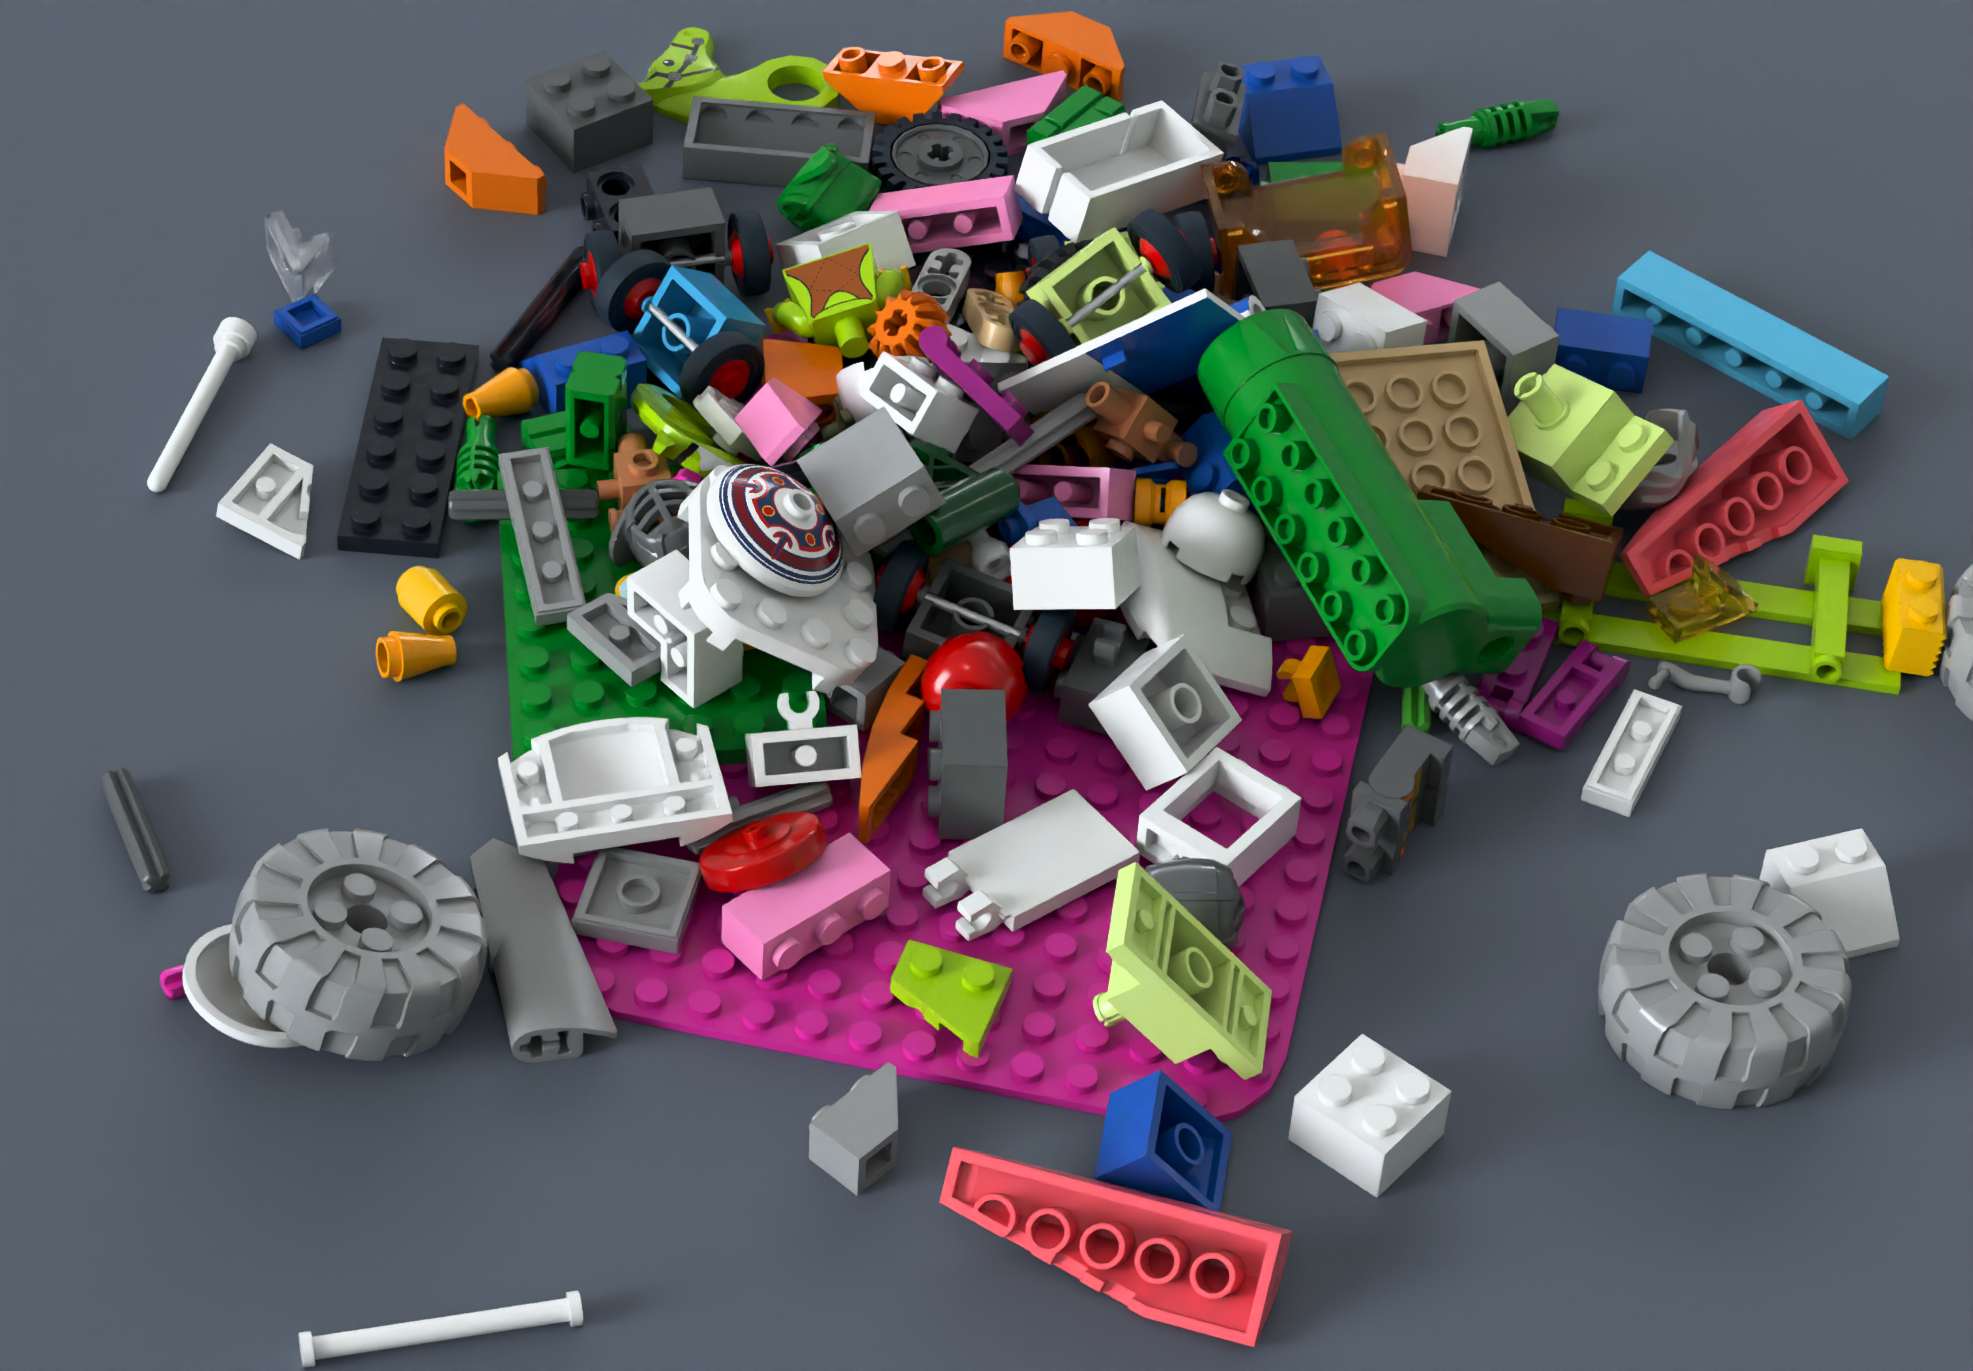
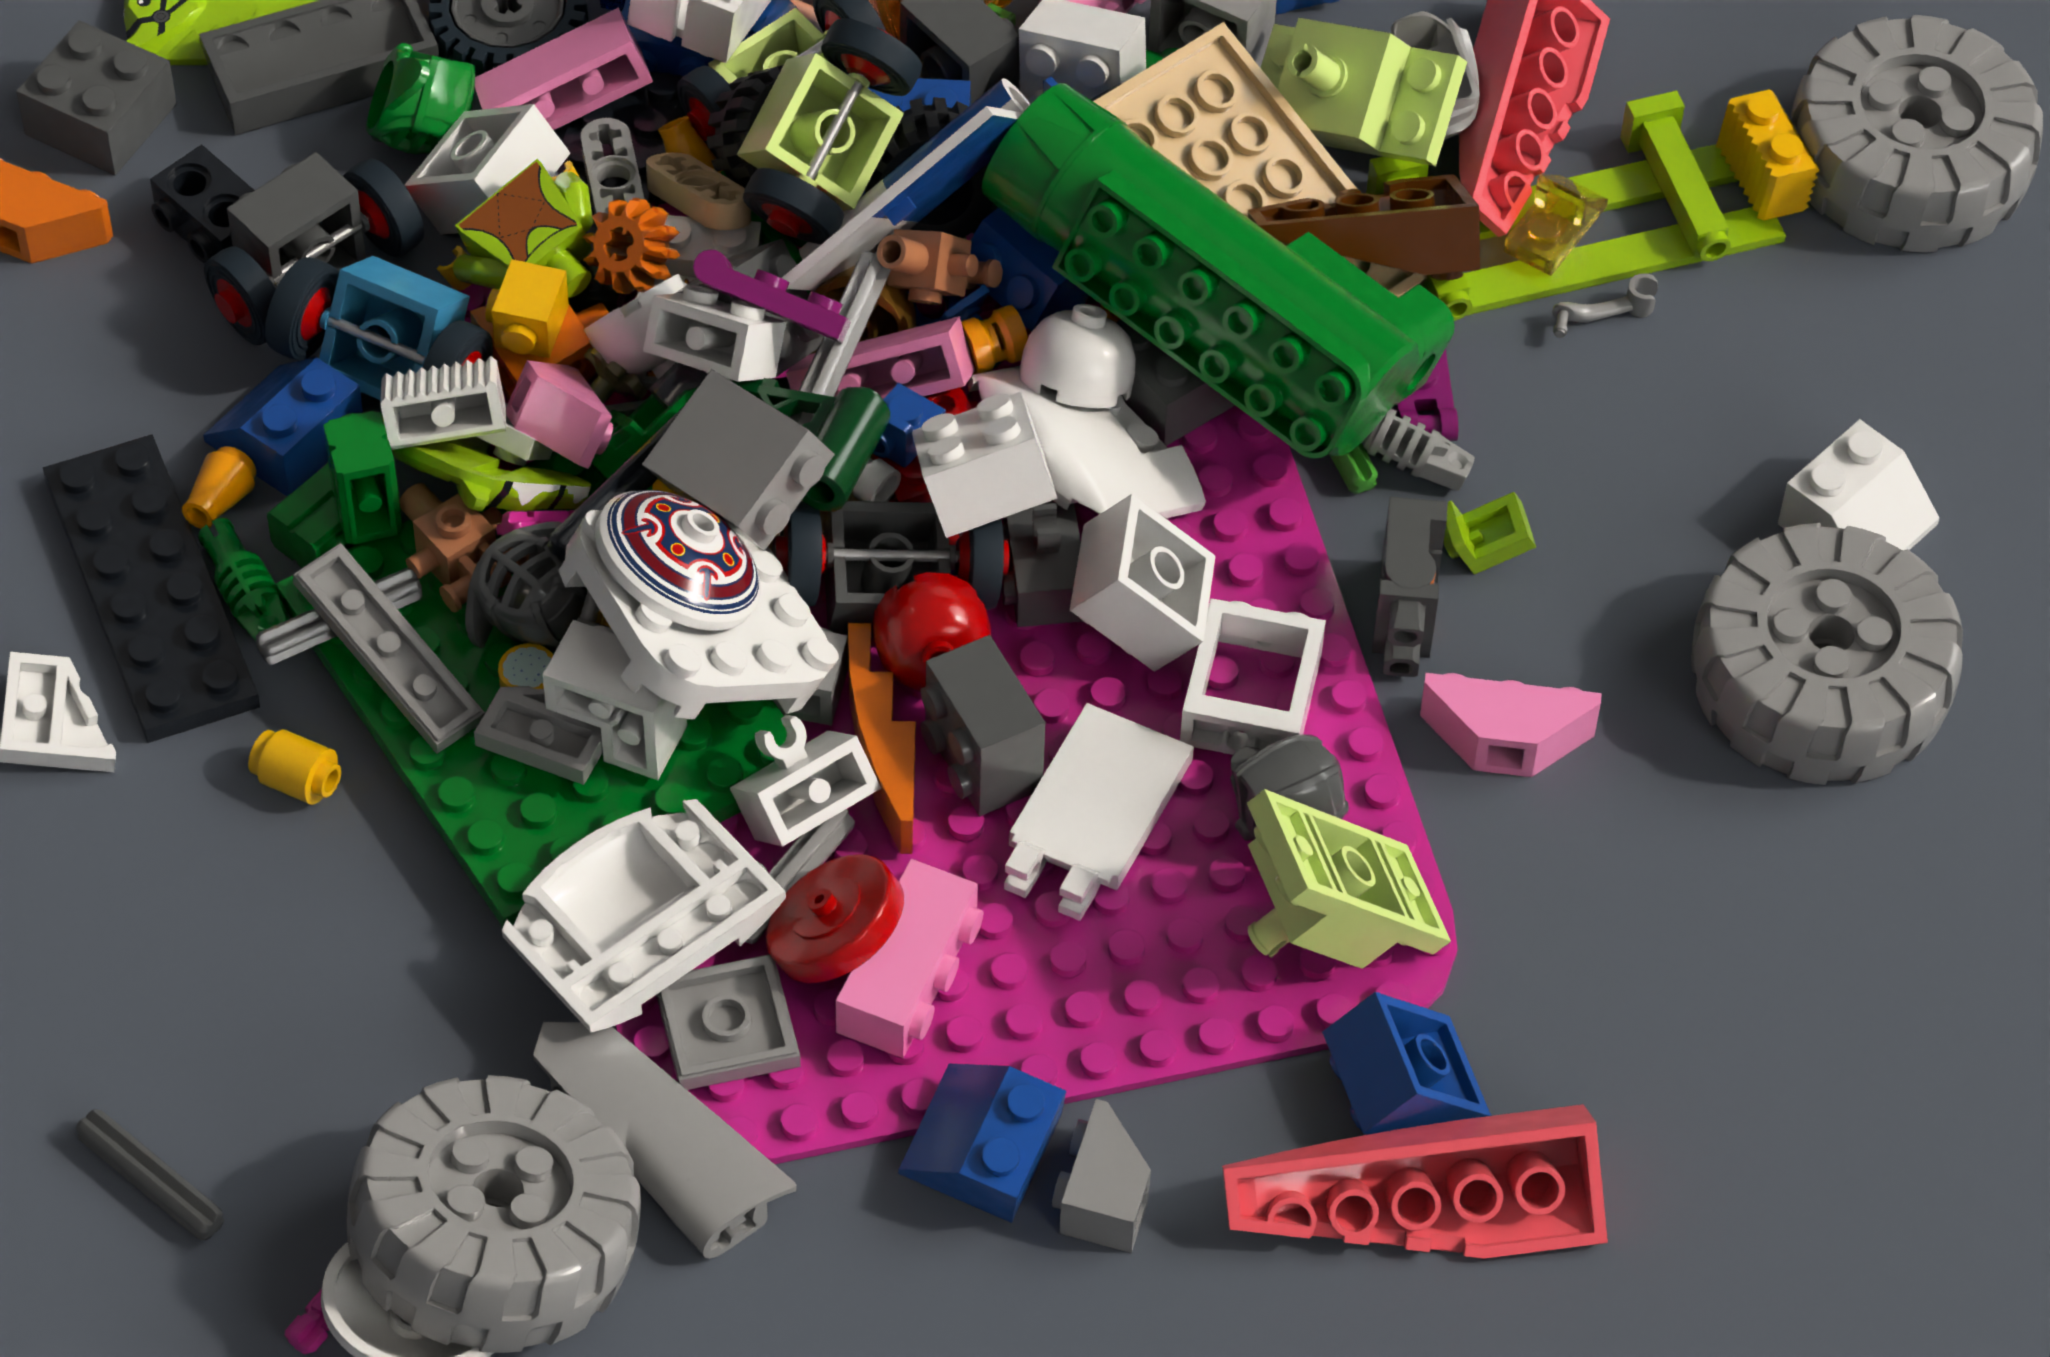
camera: 25 degrees left, 10 degrees up
(411, 654) = (312, 839): light orange cone -> none
(539, 314) = (191, 363): black axle -> none
(681, 374) = (443, 403): none -> white brick
(789, 1060) = (984, 1136): none -> blue slope
(803, 347) = (528, 308): none -> yellow brick
(951, 991) = (1100, 986): lime wing -> none
(1313, 681) = (1244, 478): light orange tile -> none
(1369, 1115) = (1576, 940): white brick -> none
(1423, 942) = (1507, 722): none -> bright pink slope
(1493, 801) = (1488, 533): none -> lime bracket
(1572, 695) = (1492, 379): magenta plate -> none
(1631, 753) = (1579, 418): white tile -> none

